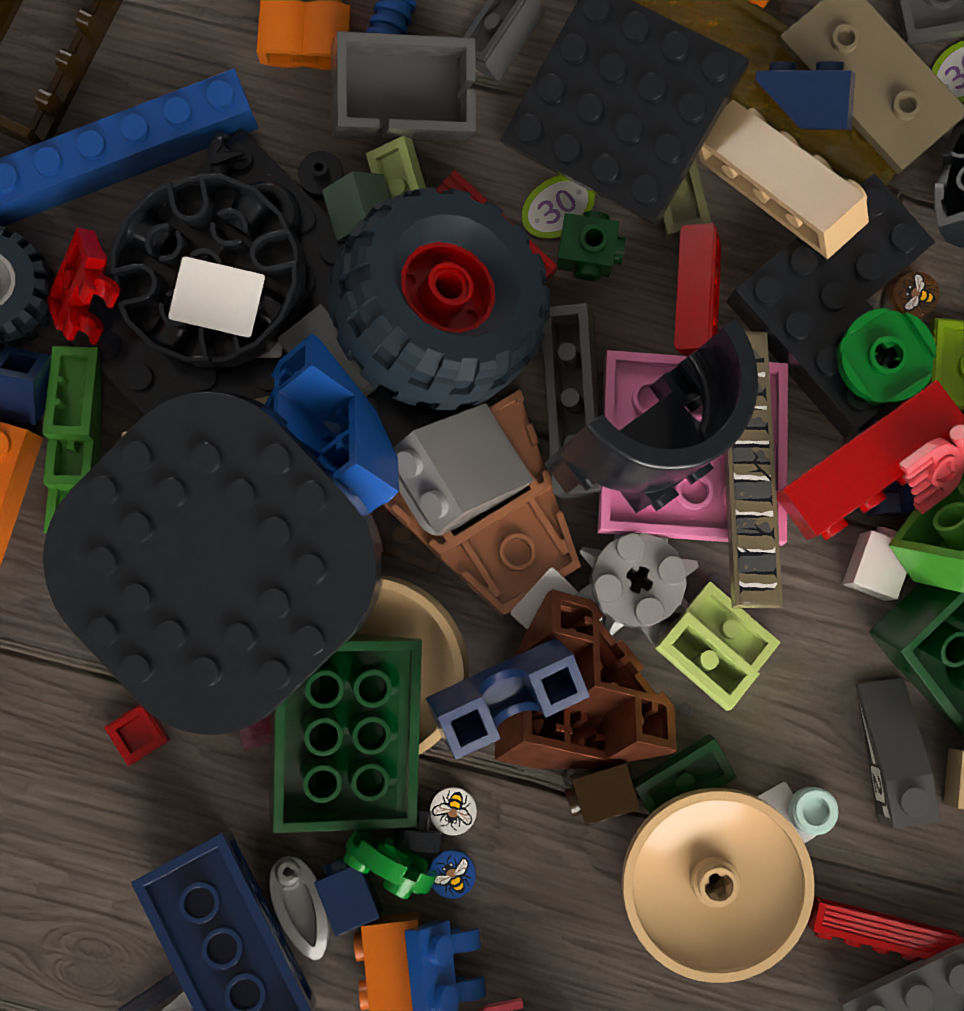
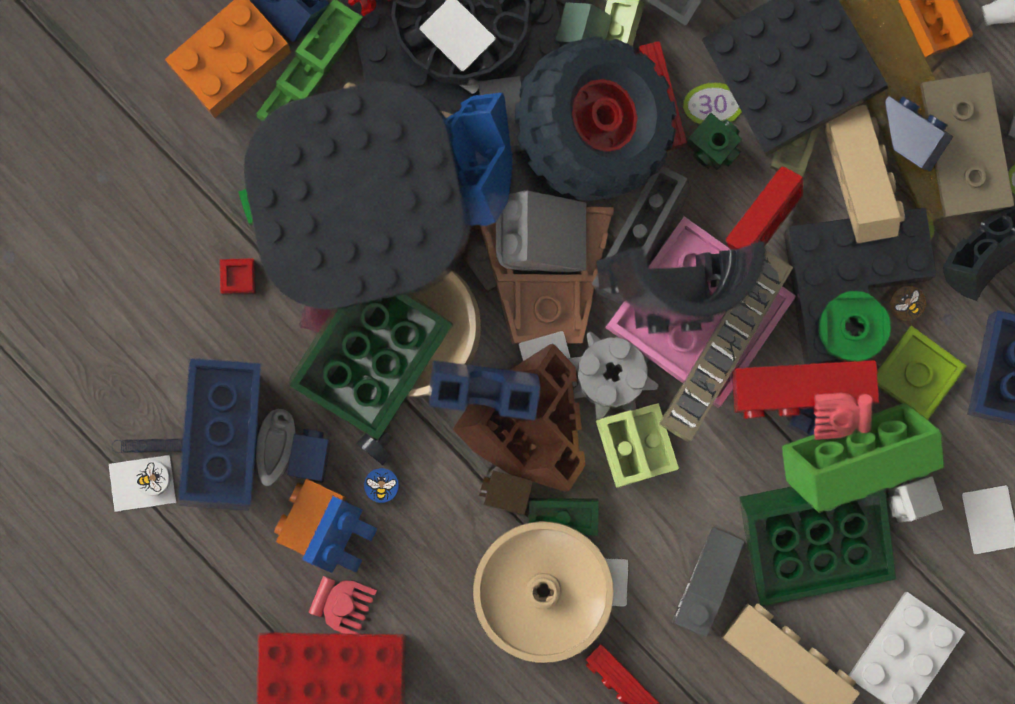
camera: 30 degrees right, 0 degrees up
(399, 867) = (352, 459): green plate -> none
(453, 810) = (406, 447): tile -> none
(813, 810) = (633, 588): light aqua tile -> none
(875, 567) = (768, 459): white brick -> none

